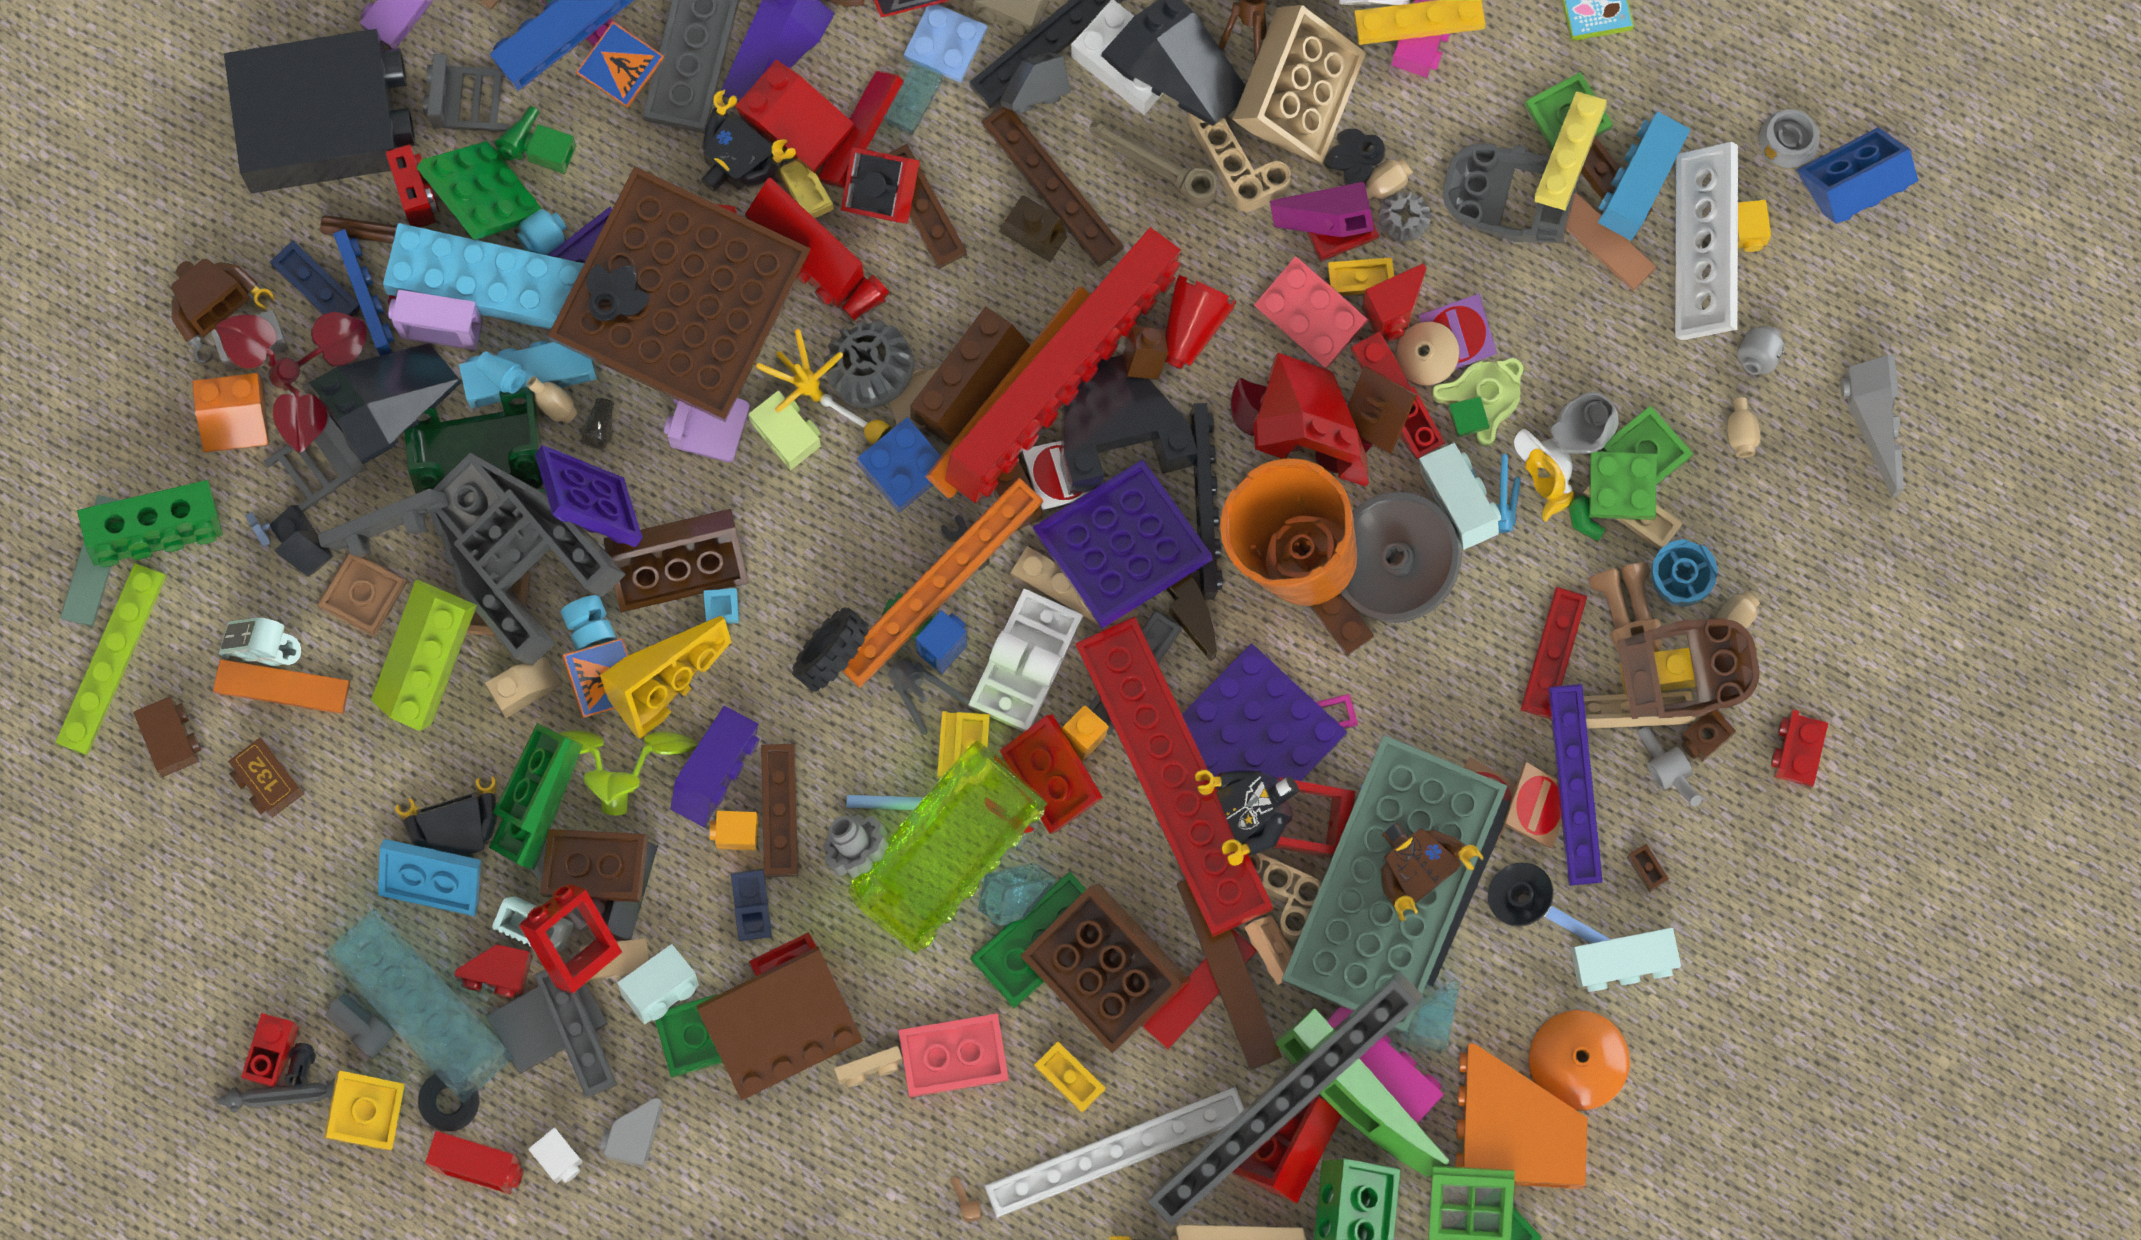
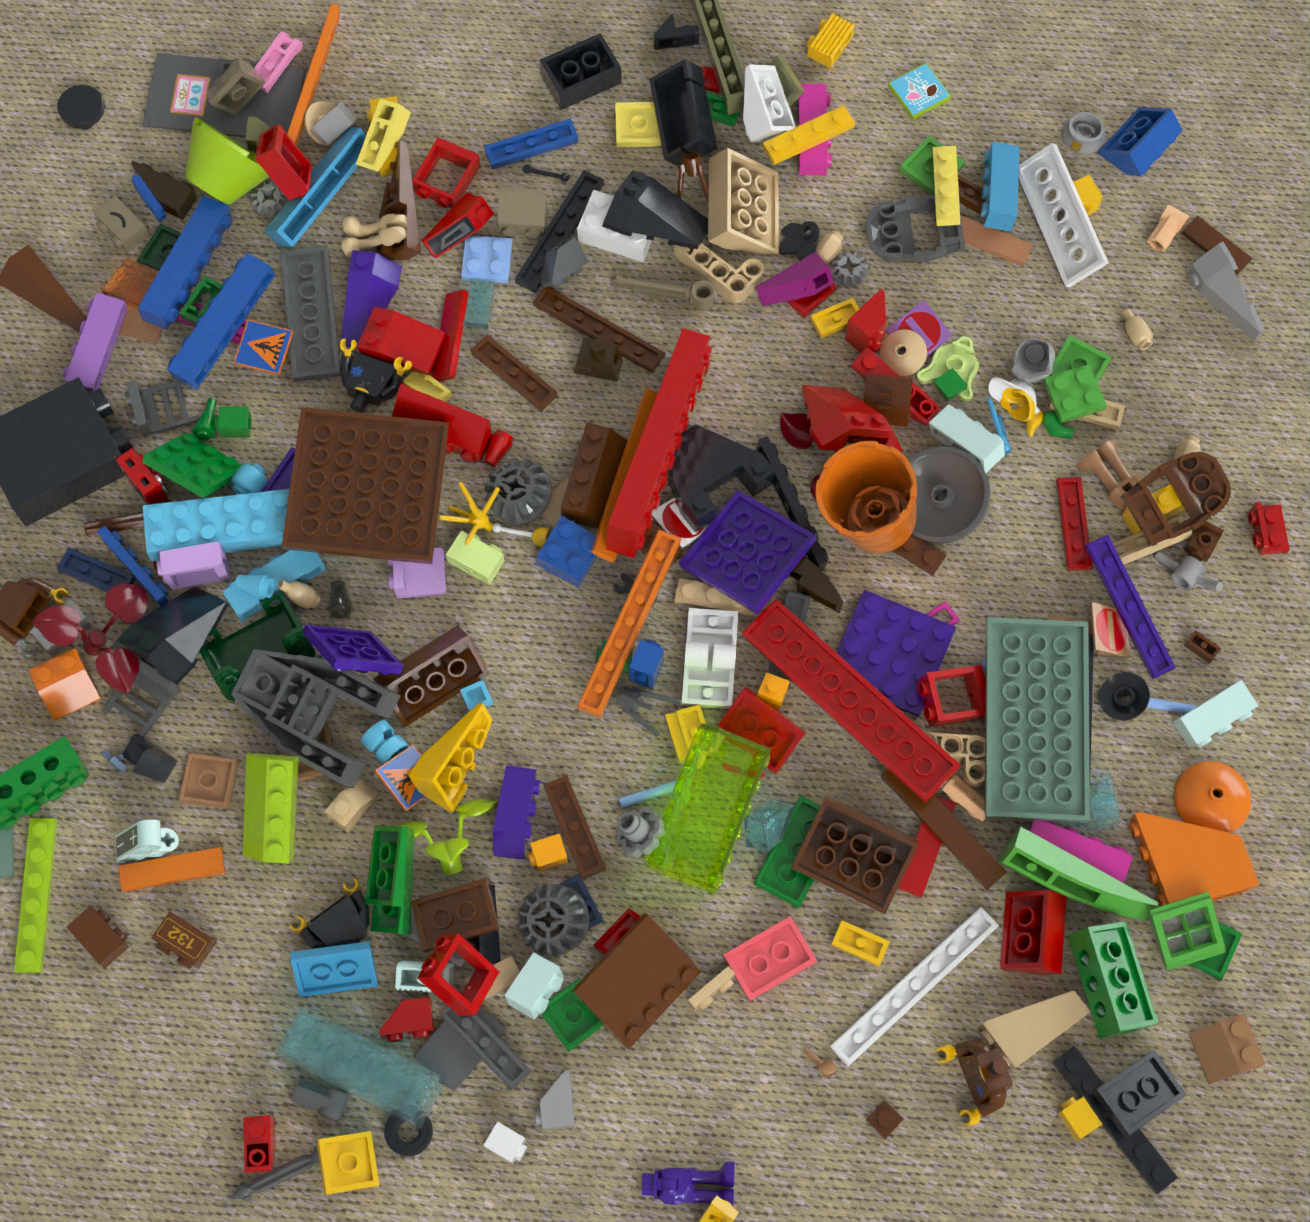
camera: 20 degrees left, 5 degrees down
(301, 1057) = (285, 1140): black pin -> none
(406, 511) = (221, 708): dark grey hinge -> none
(474, 1163) = (446, 1171): red window -> none
(617, 289) = (320, 496): black plate -> none
(735, 913) = (574, 919): none -> dark grey gear
(830, 649) = (569, 697): black tyre -> none
(880, 185) = (479, 366): piece -> none
(1145, 352) = (710, 416): reddish brown brick -> none
(1193, 320) = (734, 383): red cone -> none
(1253, 807) = (918, 700): black torso -> none
(1285, 1097) = (1029, 898): dark grey brick -> none
(1311, 312) = (813, 352): coral plate -> none
(1420, 864) = (1053, 697): reddish brown torso -> none
(1684, 573) = (1142, 436): dark azure cylinder -> none
(1761, 349) = (1127, 274): light grey head -> none
(1843, 305) = (1169, 225): none -> light nougat piece
(1891, 338) = (1207, 237): none -> reddish brown tile

